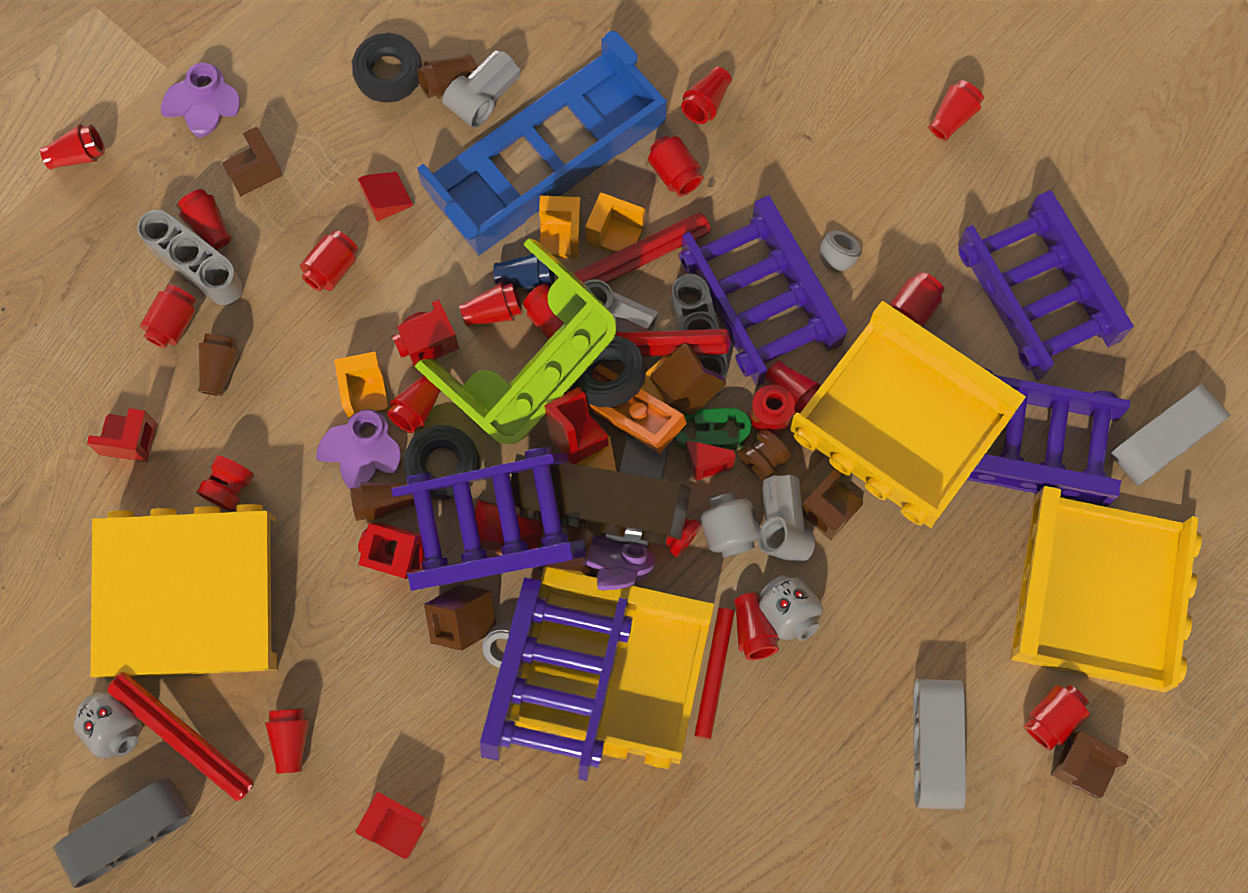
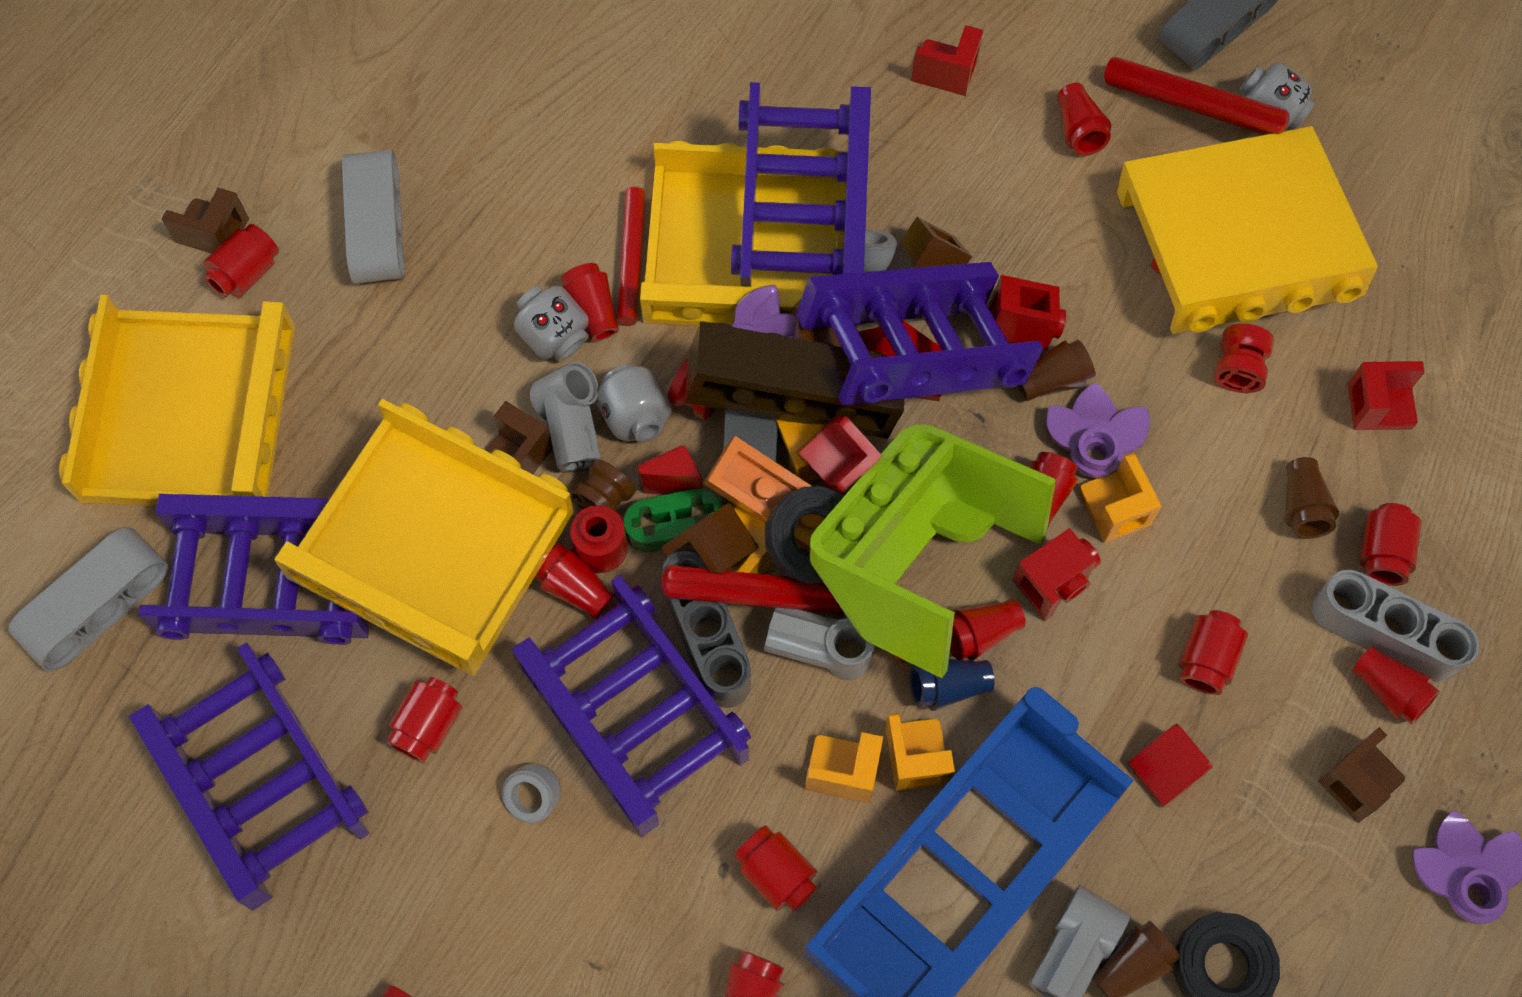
camera: 170 degrees right, 5 degrees down
(441, 437) = (1005, 401): black tyre -> none
(645, 250) = (805, 734): red axle -> none

